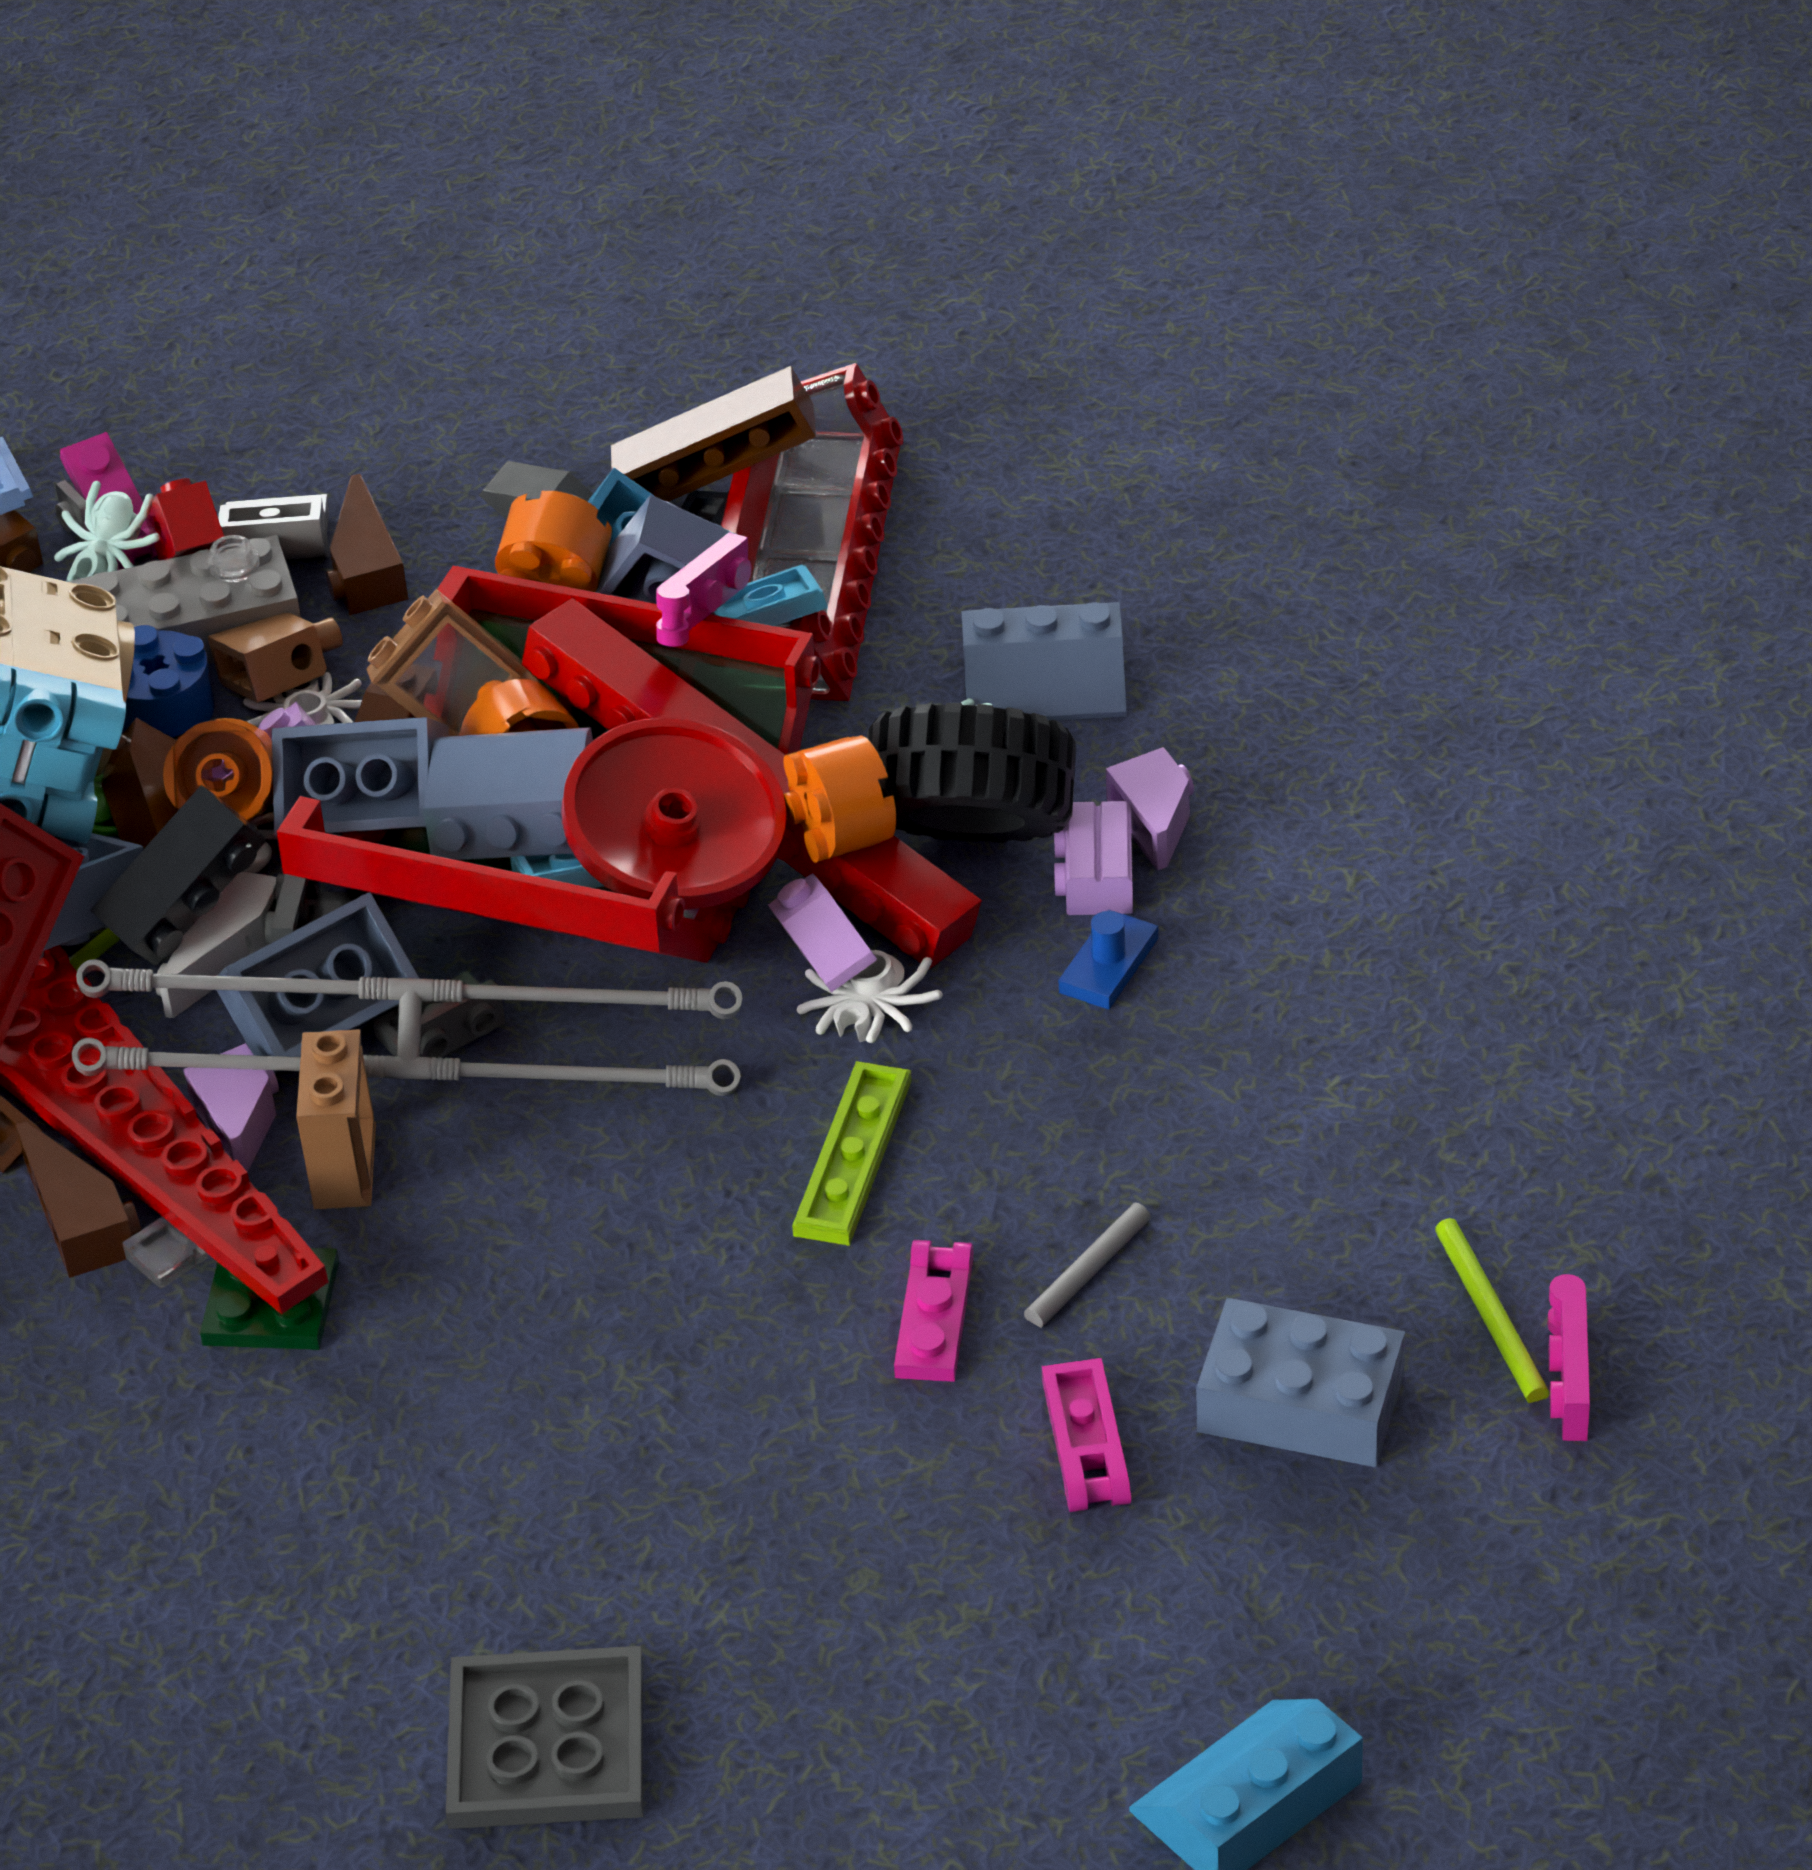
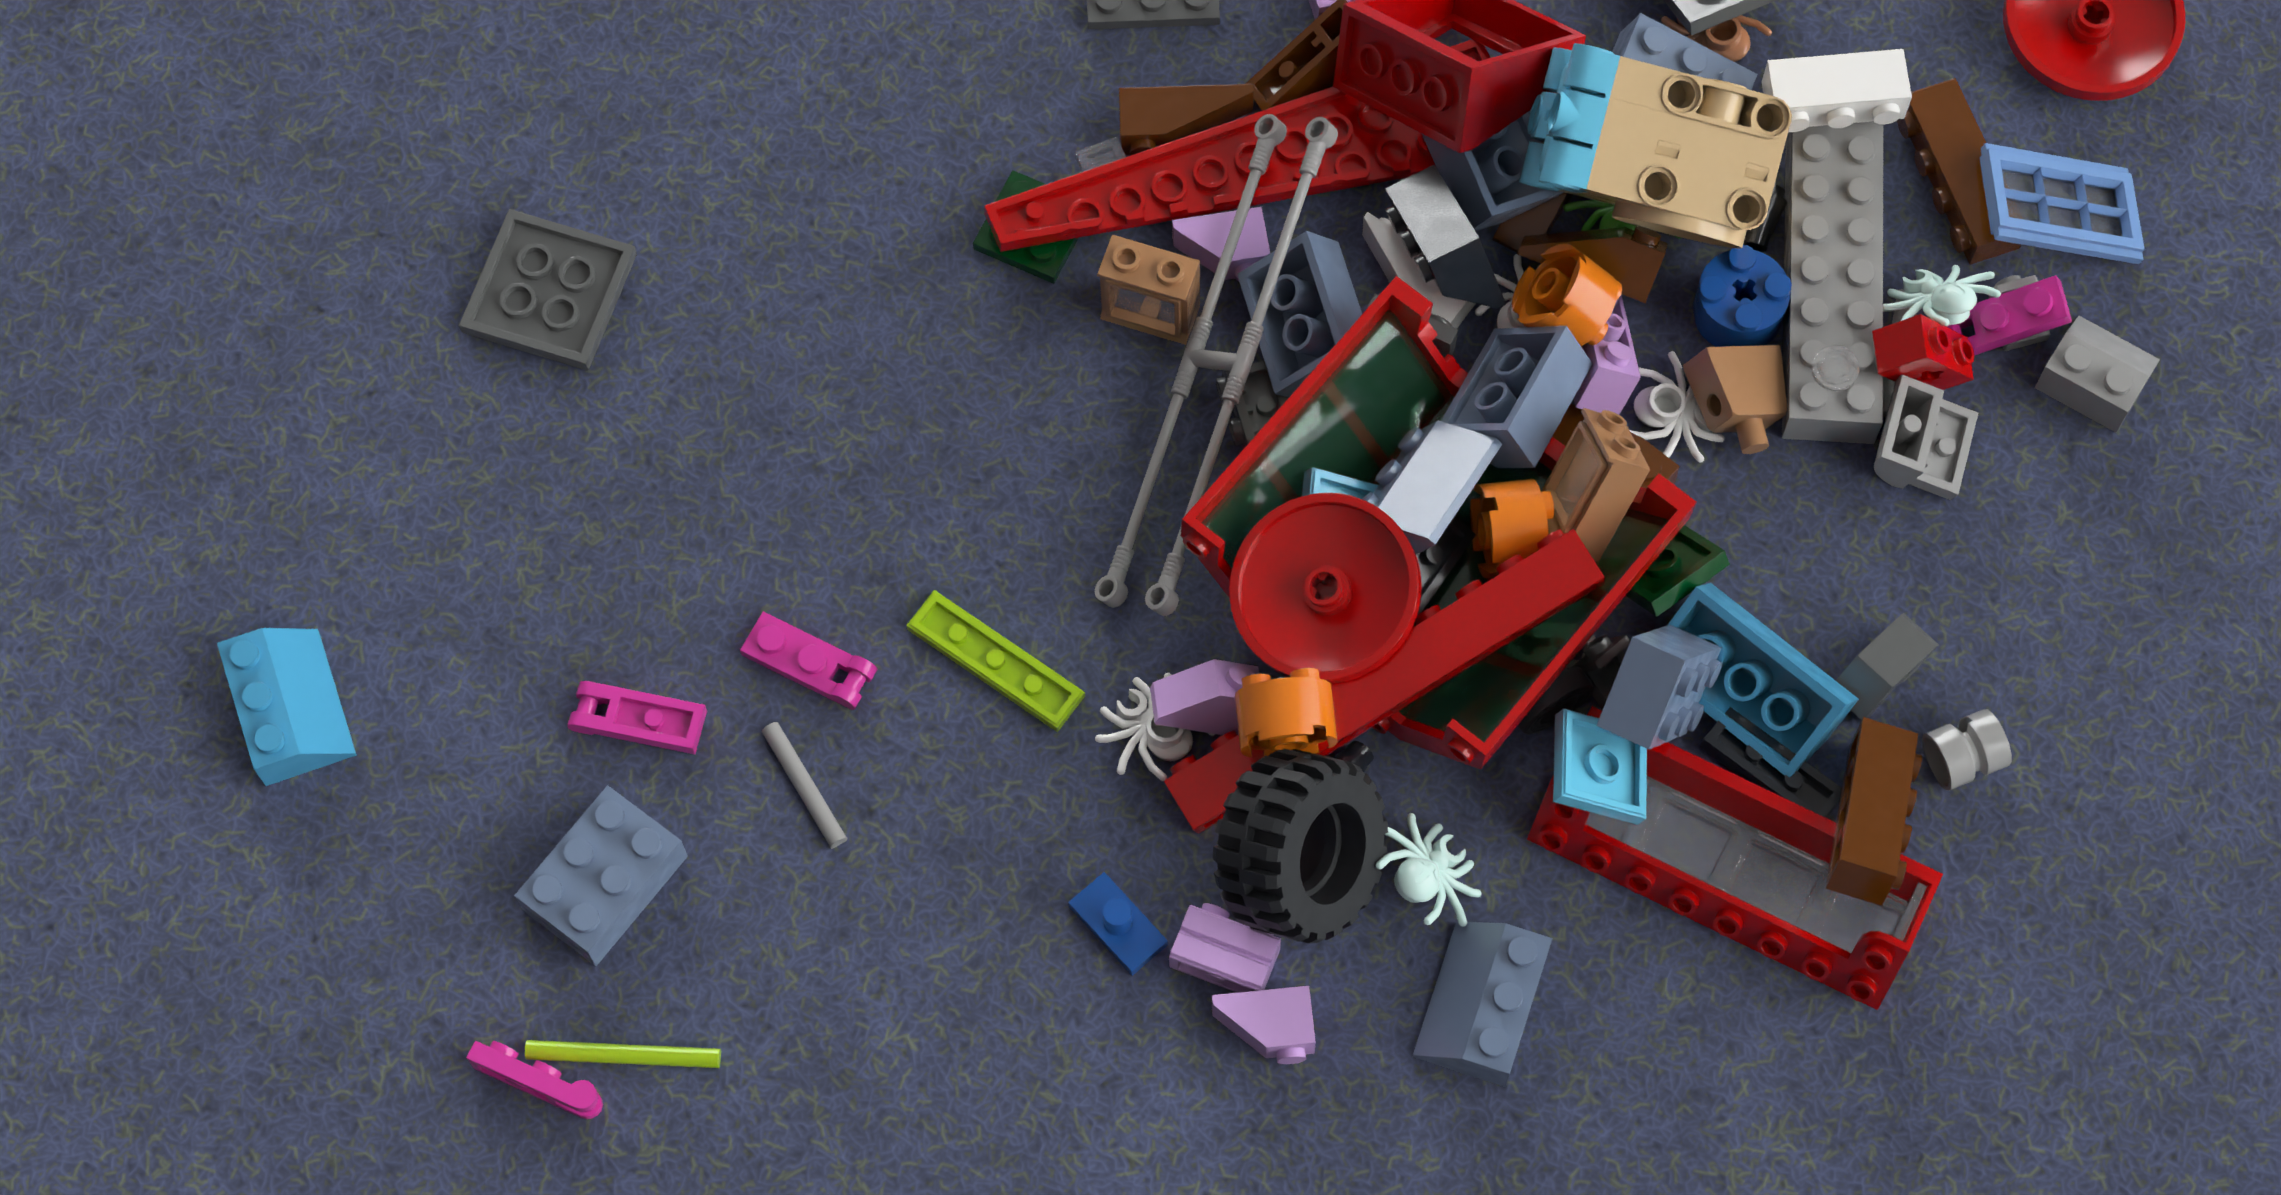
camera: 110 degrees right, 25 degrees up
(157, 431) = (2096, 373): none -> light grey slope
(363, 556) = (1861, 501): reddish brown slope -> none
(554, 541) = (1708, 598): orange brick -> none
(603, 416) = (1961, 751): none -> light grey wheel
(701, 588) = (1556, 671): dark pink plate -> none

